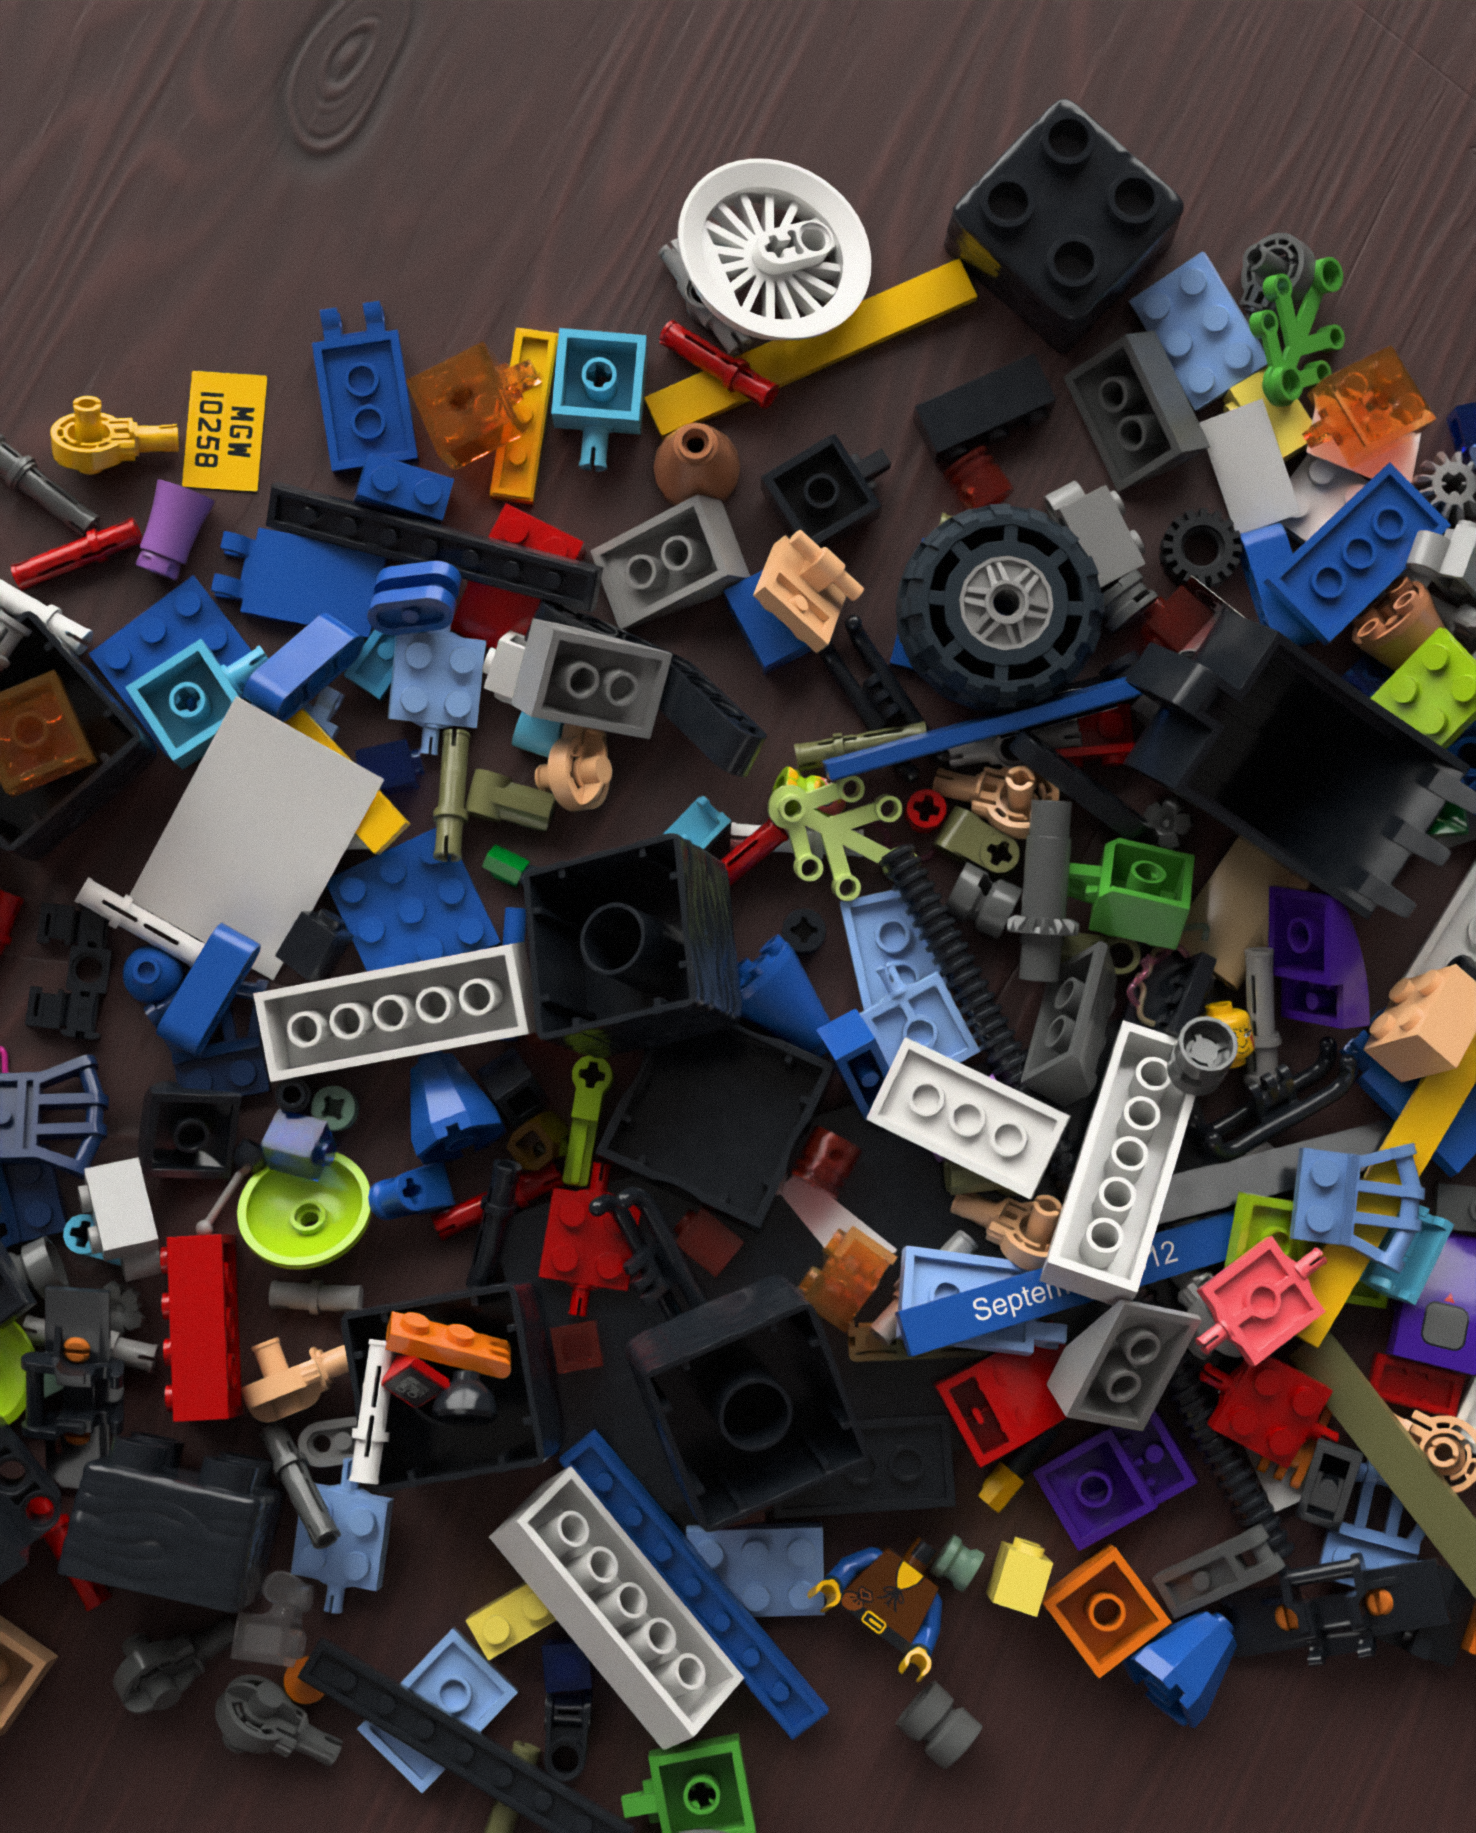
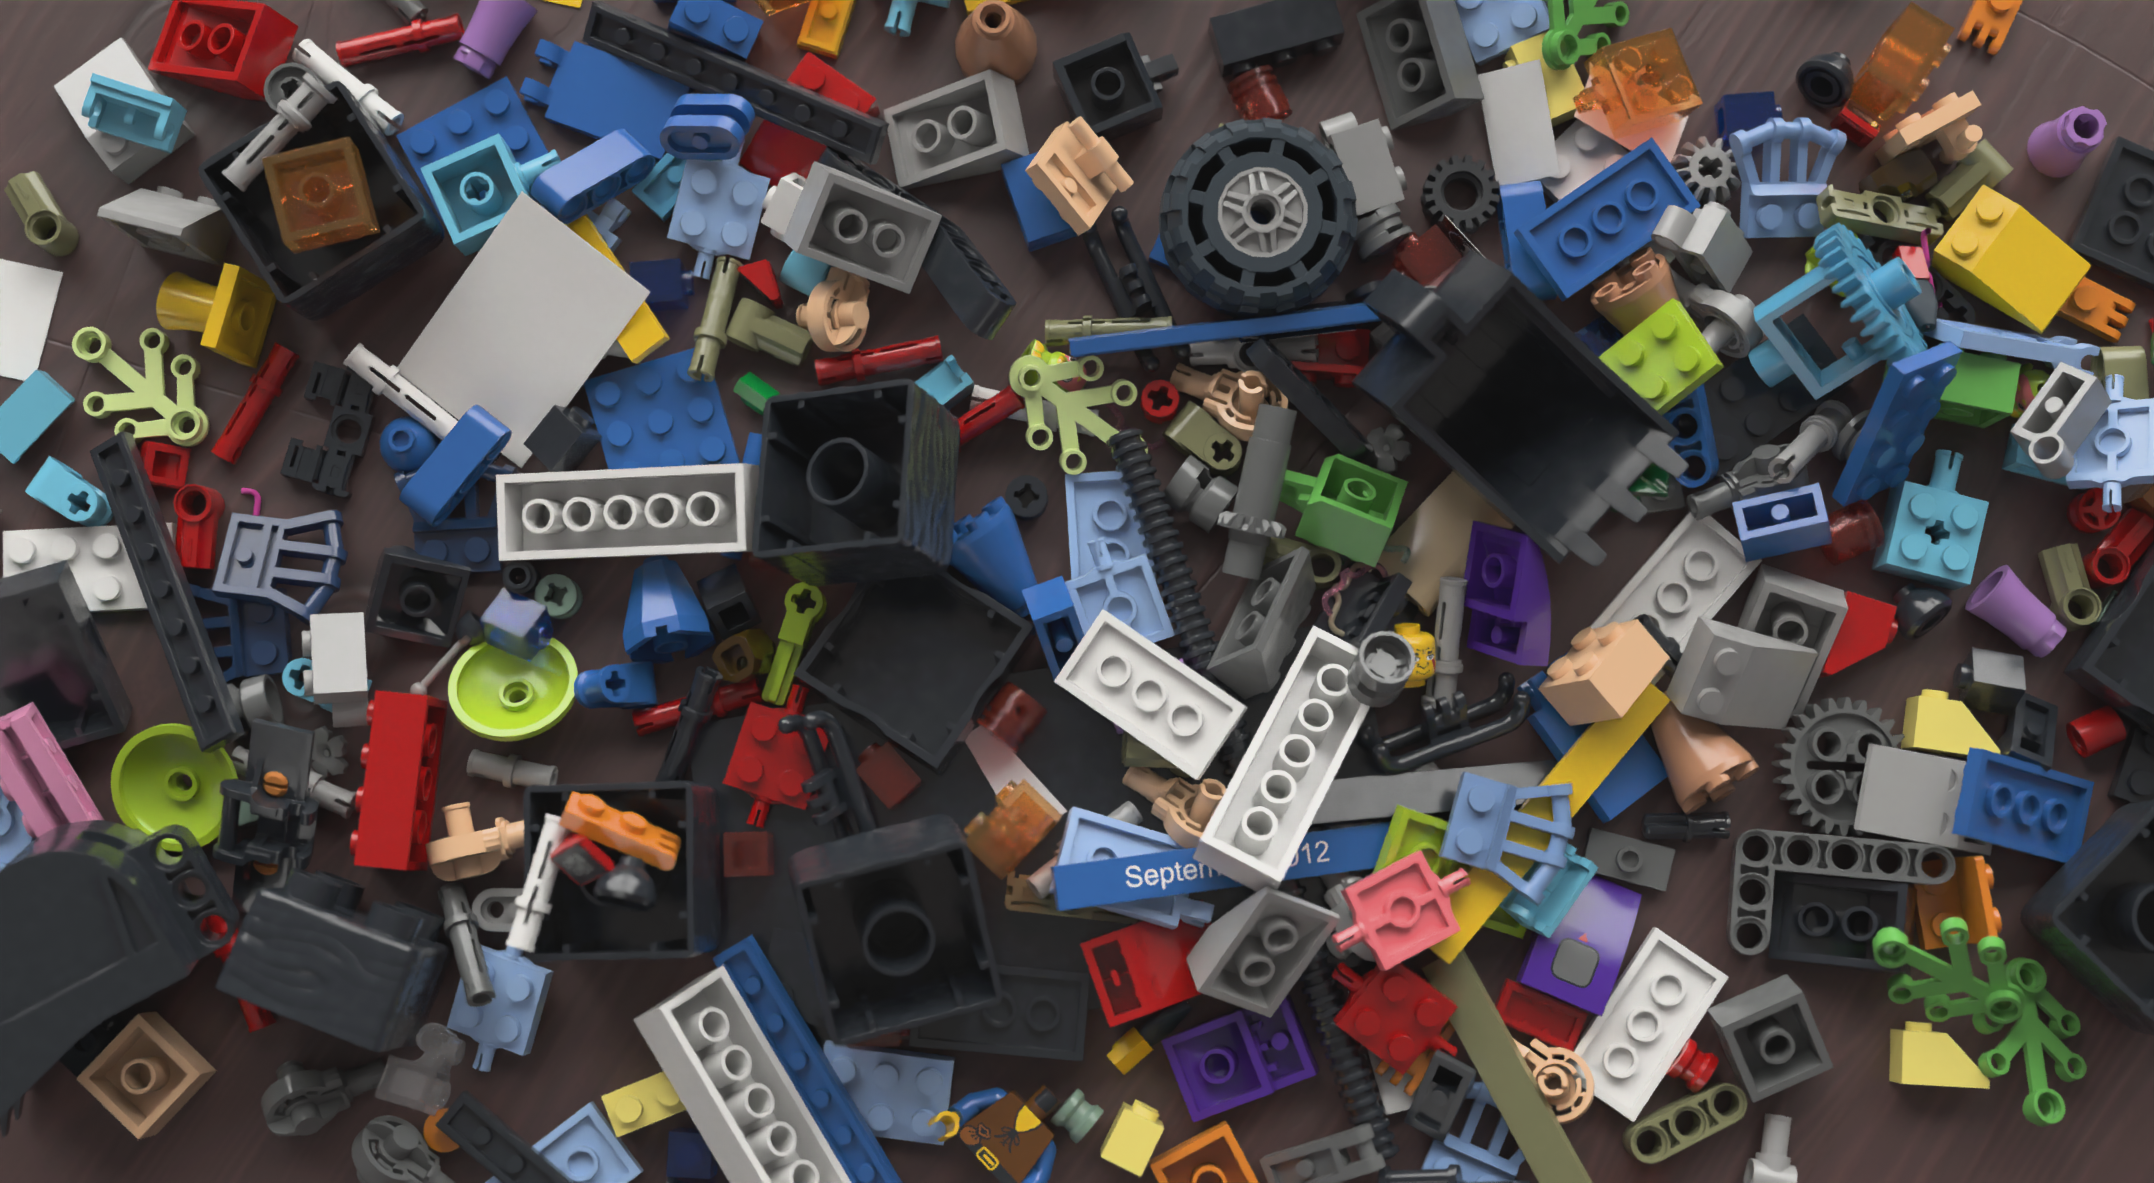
camera: 10 degrees right, 0 degrees up
(495, 748) = (762, 279): none -> red slope
(621, 814) = (879, 360): none -> red pin

